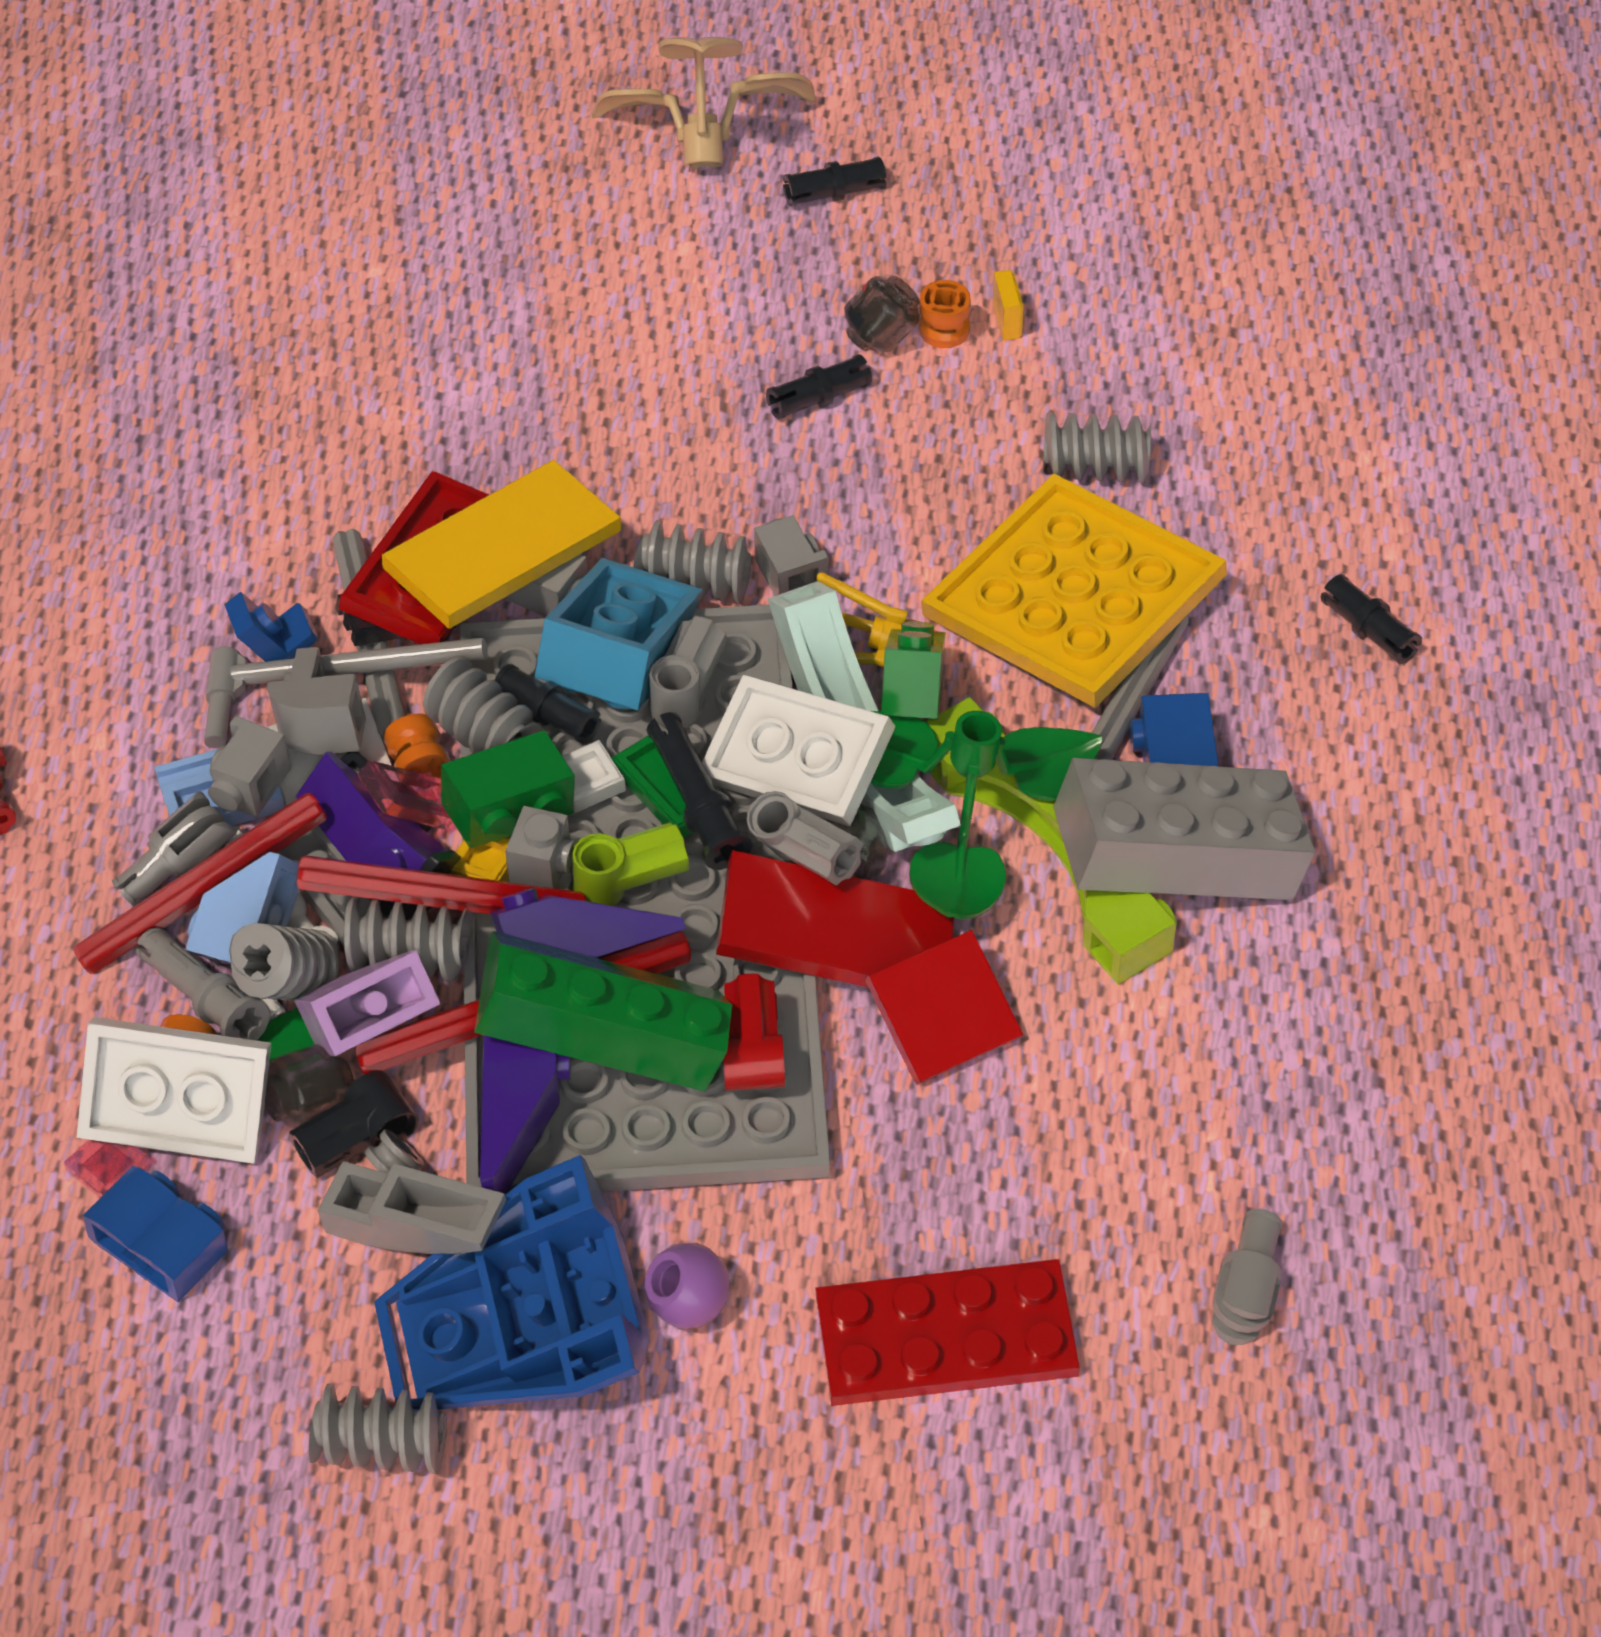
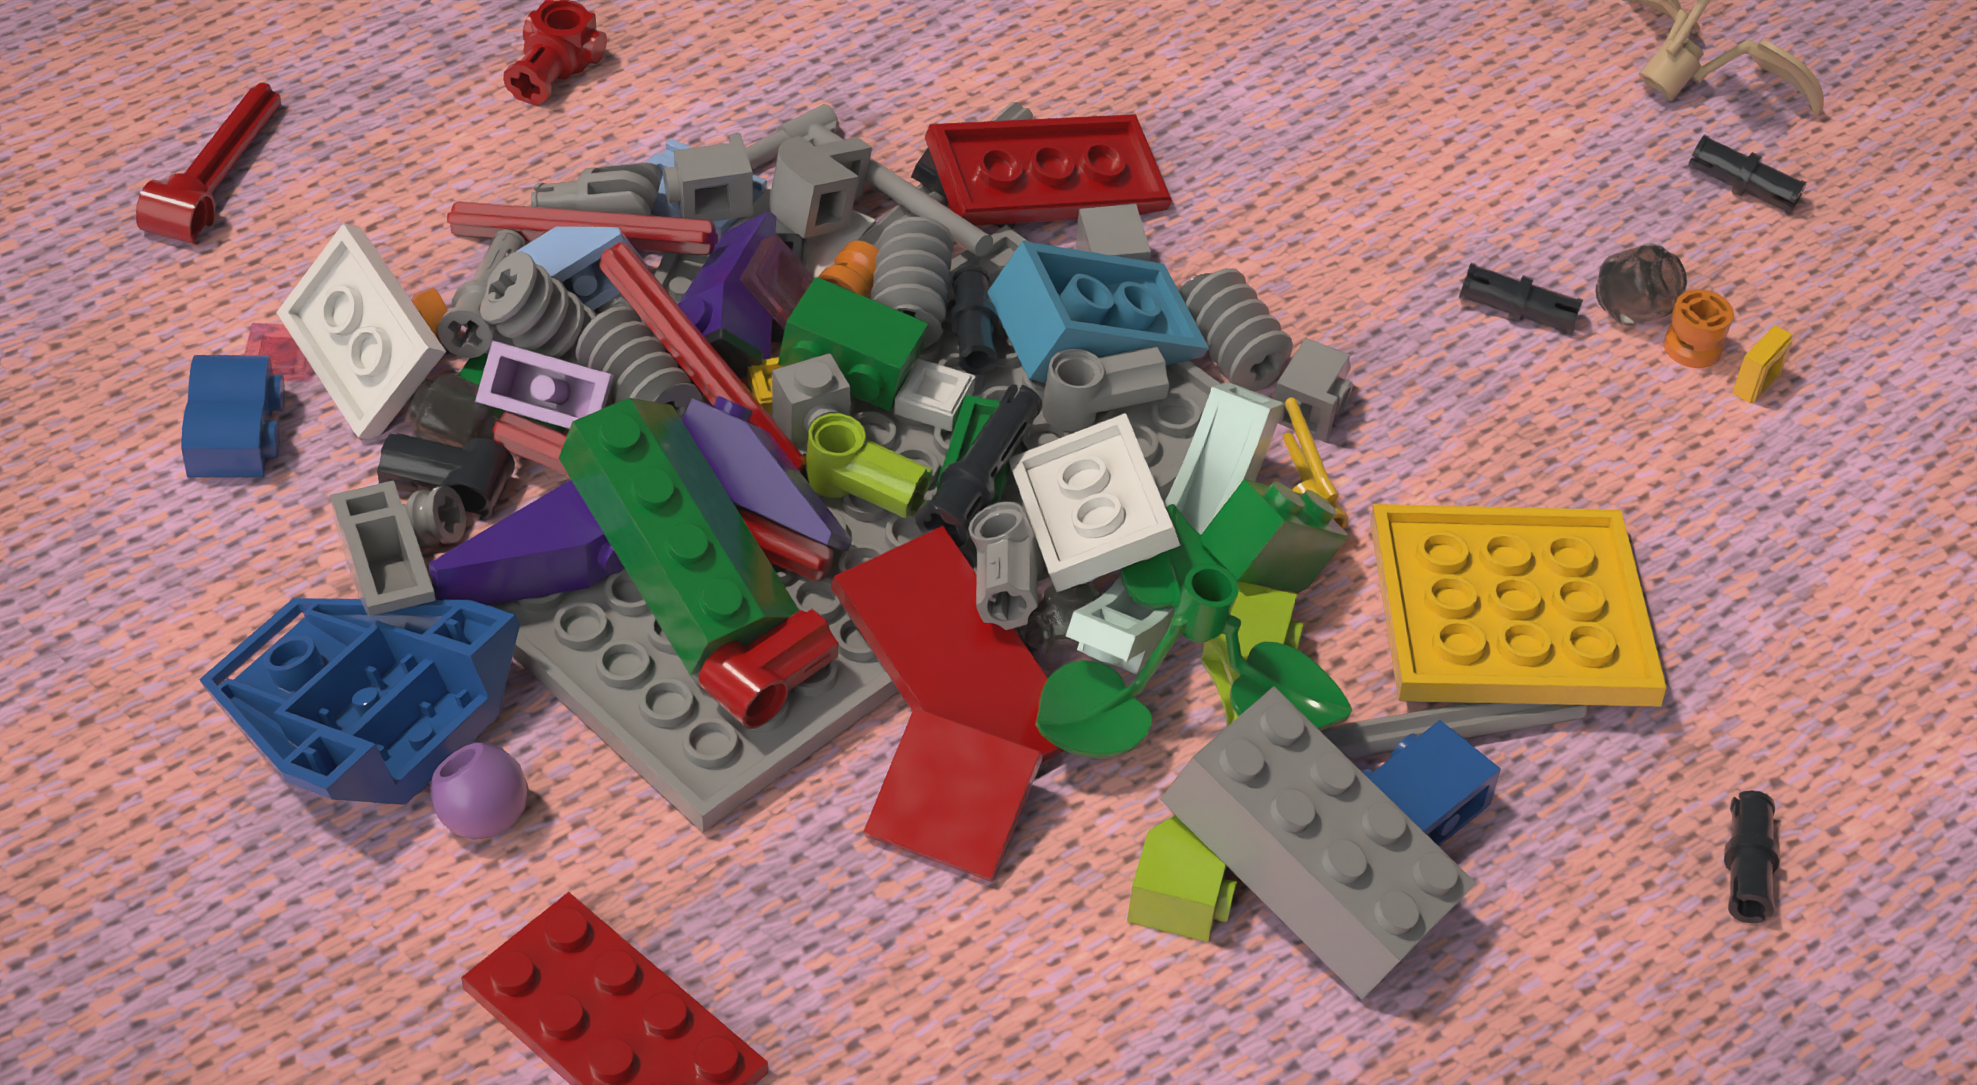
camera: 45 degrees right, 5 degrees down
(267, 633) = (864, 114): blue bracket -> none
(378, 1431) = (153, 673): light grey piece -> none
(501, 543) = (1096, 188): yellow tile -> none
(1097, 447) = (1684, 527): light grey piece -> none

